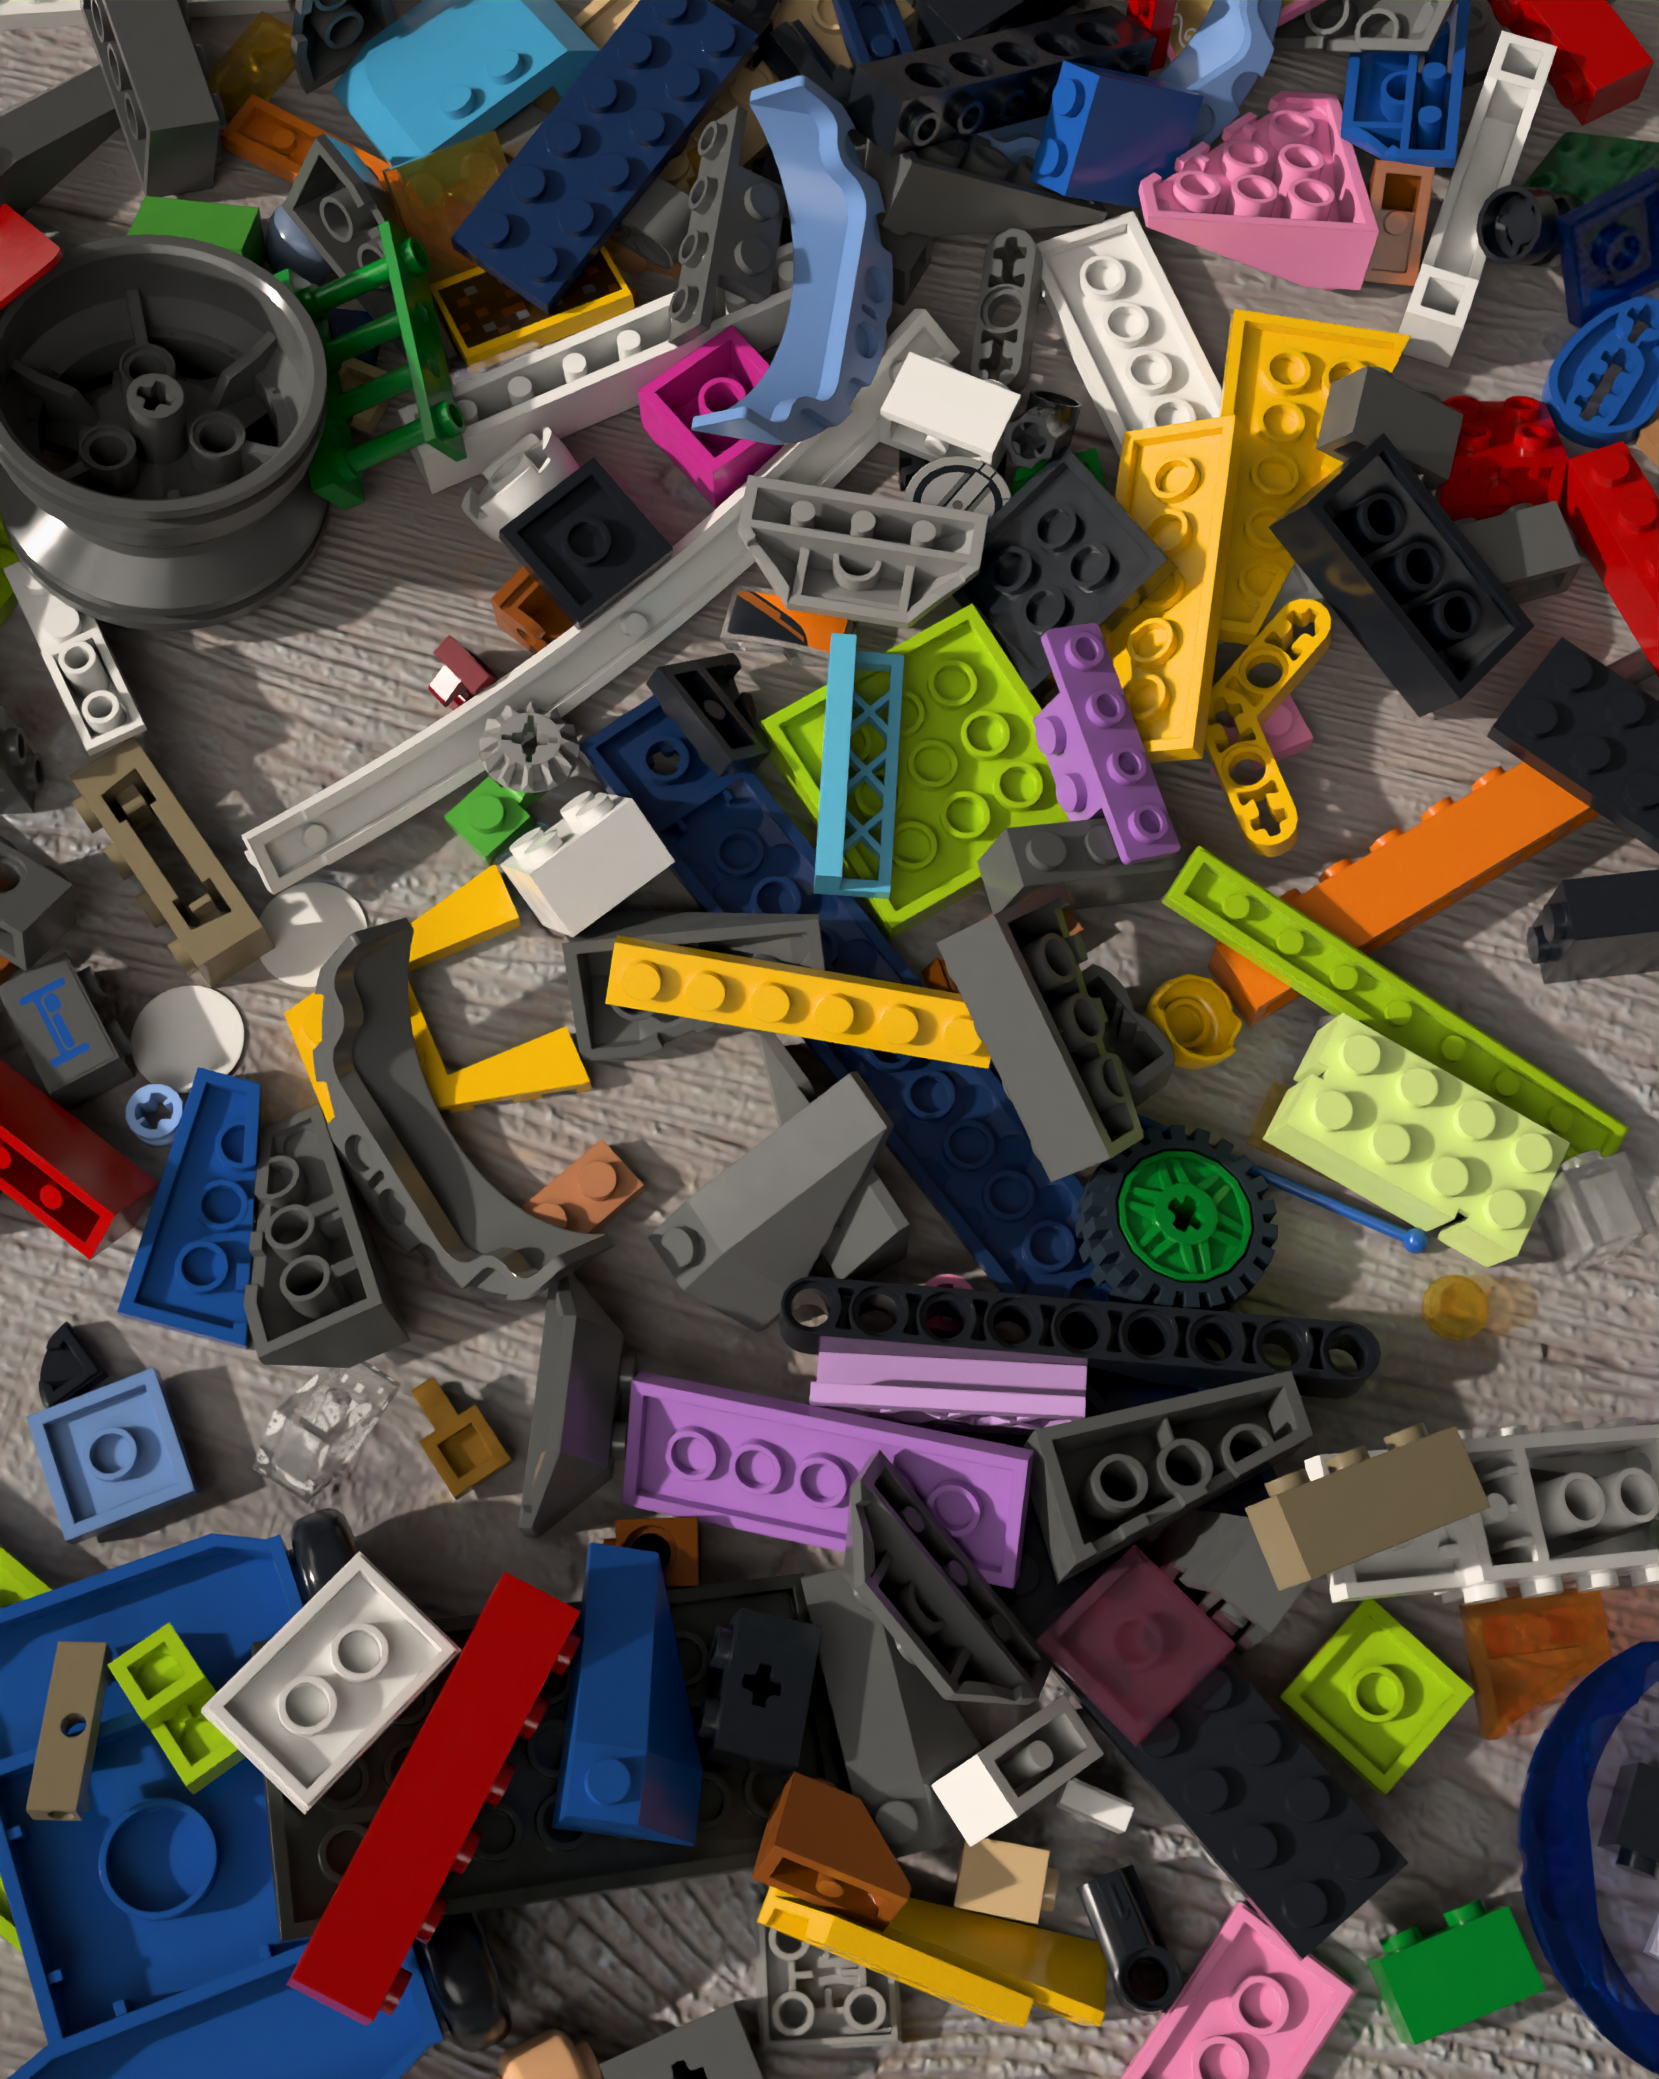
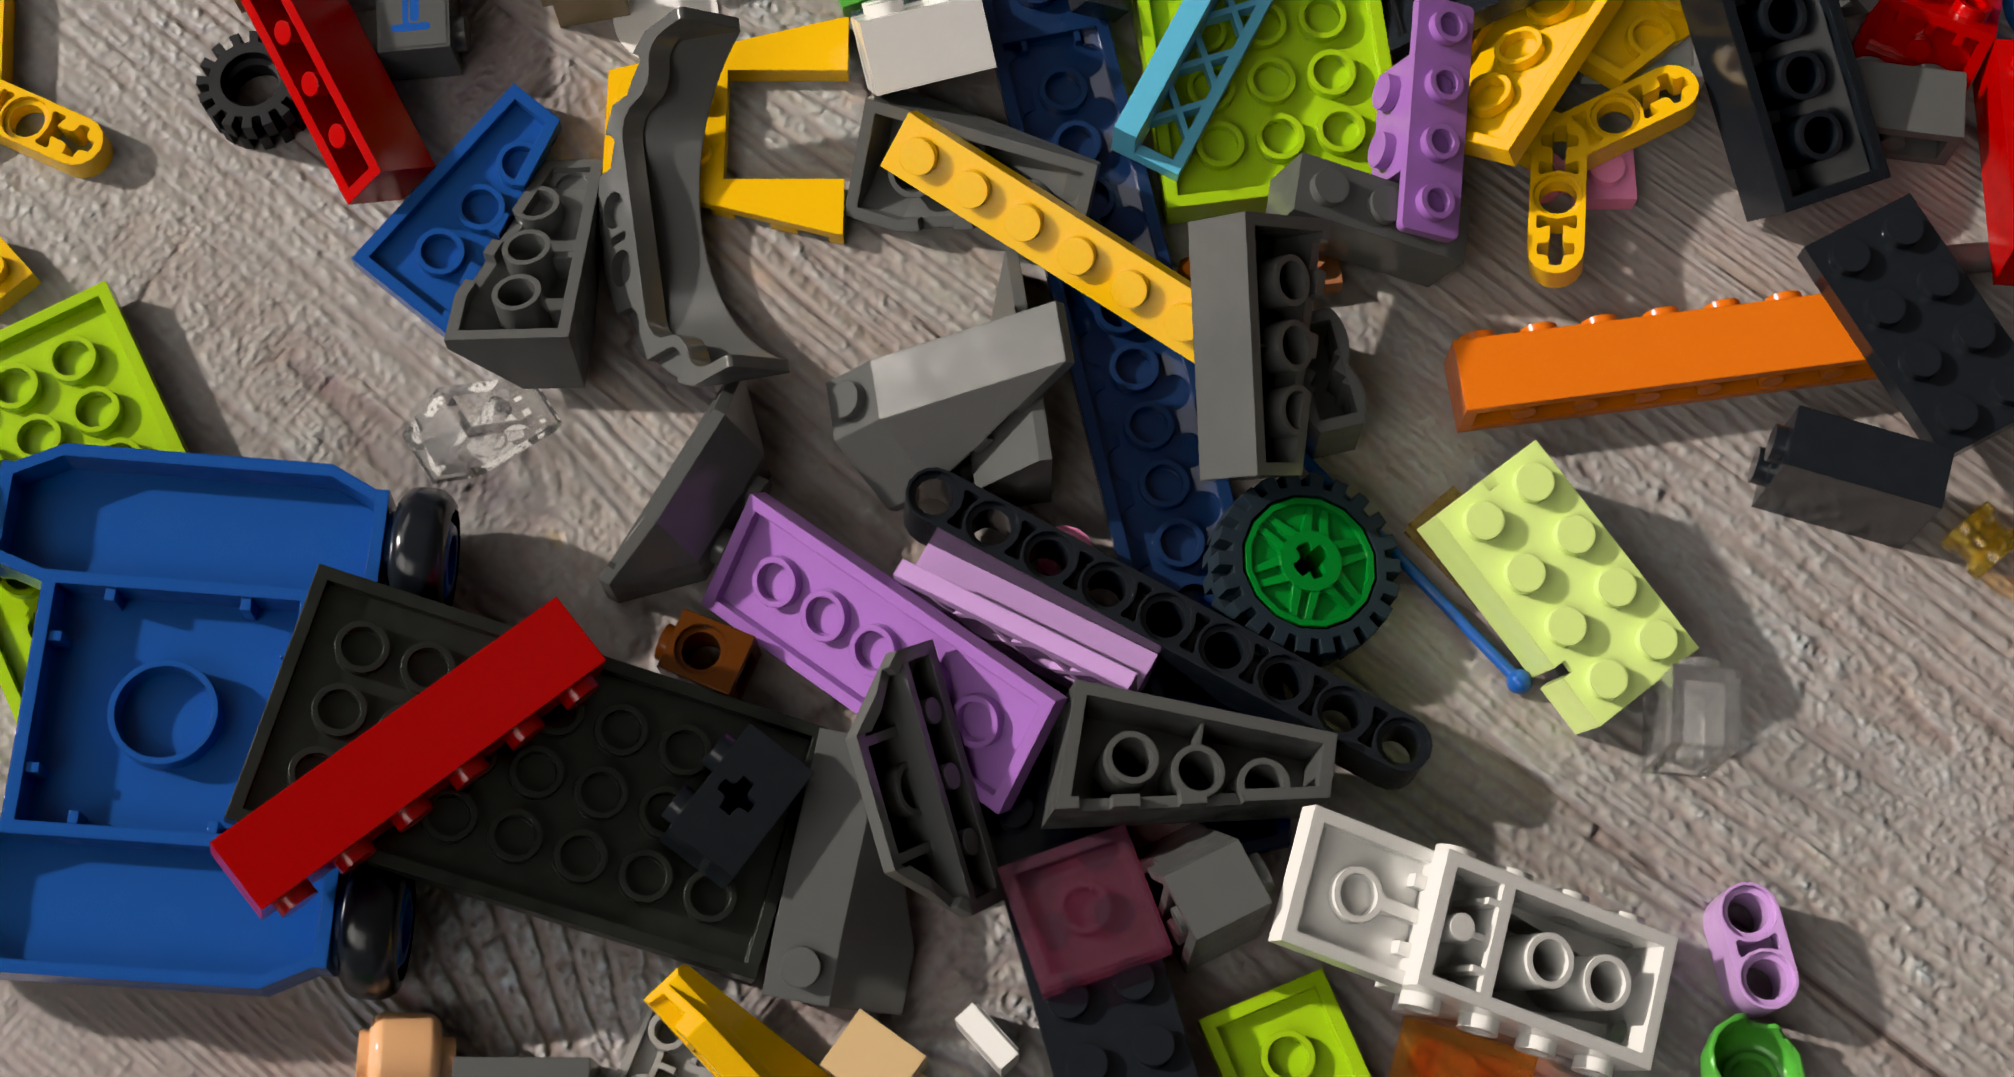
camera: 25 degrees right, 0 degrees up
(64, 1762) = (121, 594): dark tan piece -> none
(68, 1368) = (292, 293): black tile -> none
(112, 1456) = (294, 378): medium blue plate -> none
(147, 1100) = (460, 96): light blue bush -> none
(168, 1696) = (237, 593): lime slope -> none
(184, 1032) = (521, 52): white sticker -> none
(330, 1682) = (368, 624): white tile -> none
(462, 1444) = (588, 493): pearl gold plate -> none
(587, 1192) = (797, 328): nougat plate -> none
(629, 1724) = (611, 776): blue wedge -> none
(830, 1853) = (729, 967): dark orange slope -> none
(1017, 1770) = (929, 972): white brick -> none
(1195, 1020) = (1404, 401): yellow hair -> none
(1354, 984) = (1568, 430): lime tile -> none
(1365, 1504) = (1334, 861): dark tan brick -> none
(1455, 1307) = (1526, 755): clear yellow plate -> none

